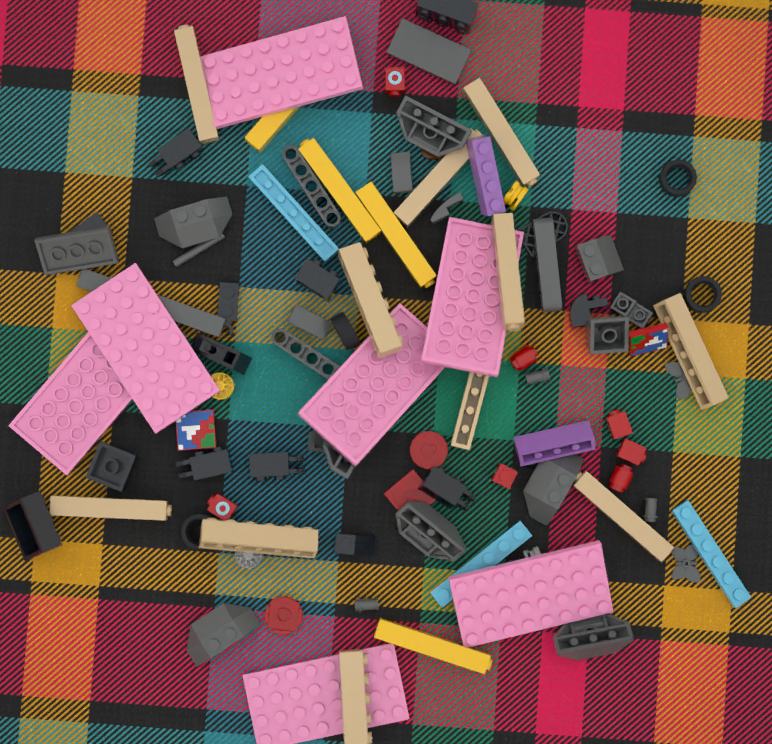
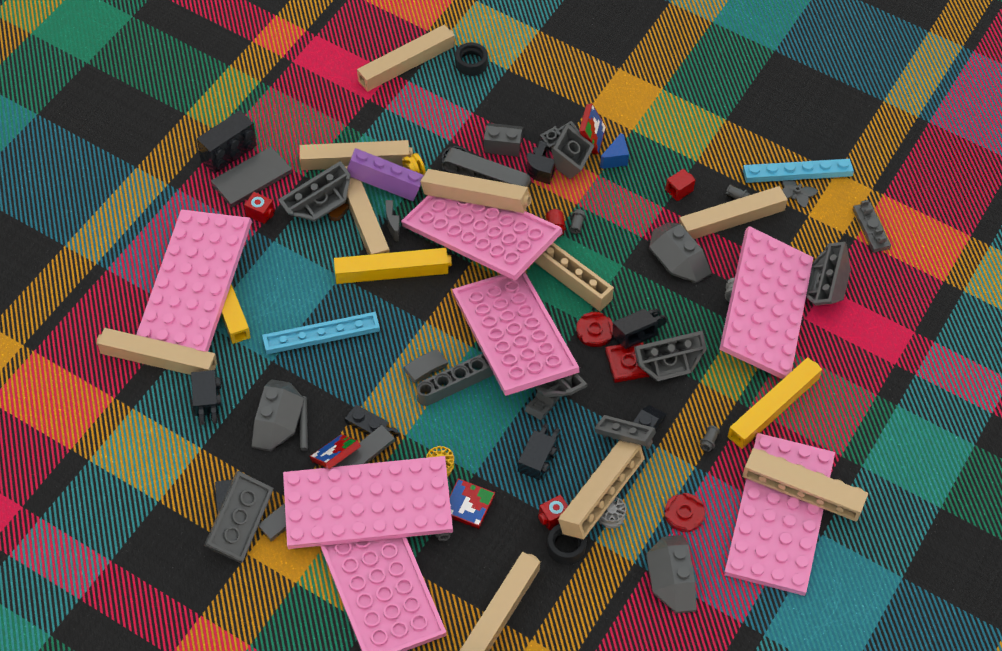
camera: 60 degrees left, 30 degrees down
(112, 466) = (461, 585): black brick -> none
(179, 293) = (335, 451): none -> tile
(208, 464) = (507, 505): black hinge -> none
(221, 353) = (413, 443): black slope -> none
(308, 178) = (335, 303): dark grey beam -> none
(318, 279) = (393, 335): black brick -> none
(326, 531) = (625, 431): none -> dark grey plate
(339, 190) = (324, 289): yellow brick -> none
(345, 330) = (451, 344): black tyre -> none
(369, 300) = (436, 304): tan brick -> none
(401, 172) = (341, 237): dark grey slope -> none
(486, 558) = (715, 322): medium azure plate -> none
(504, 476) = (650, 280): red brick -> none
(554, 443) = (642, 231): medium lavender brick -> none
(618, 424) = (651, 183): red brick -> none
(621, 478) = (698, 199): red brick -> none
(635, 375) = (616, 154): none -> blue slope
(645, 115) = (405, 57): none -> tan brick
(680, 650) = (871, 226): none -> dark grey plate
(683, 388) = (643, 125): dark grey piece -> none
(691, 352) = (621, 107): tan brick -> none
(705, 280) = (576, 73): black tyre -> none

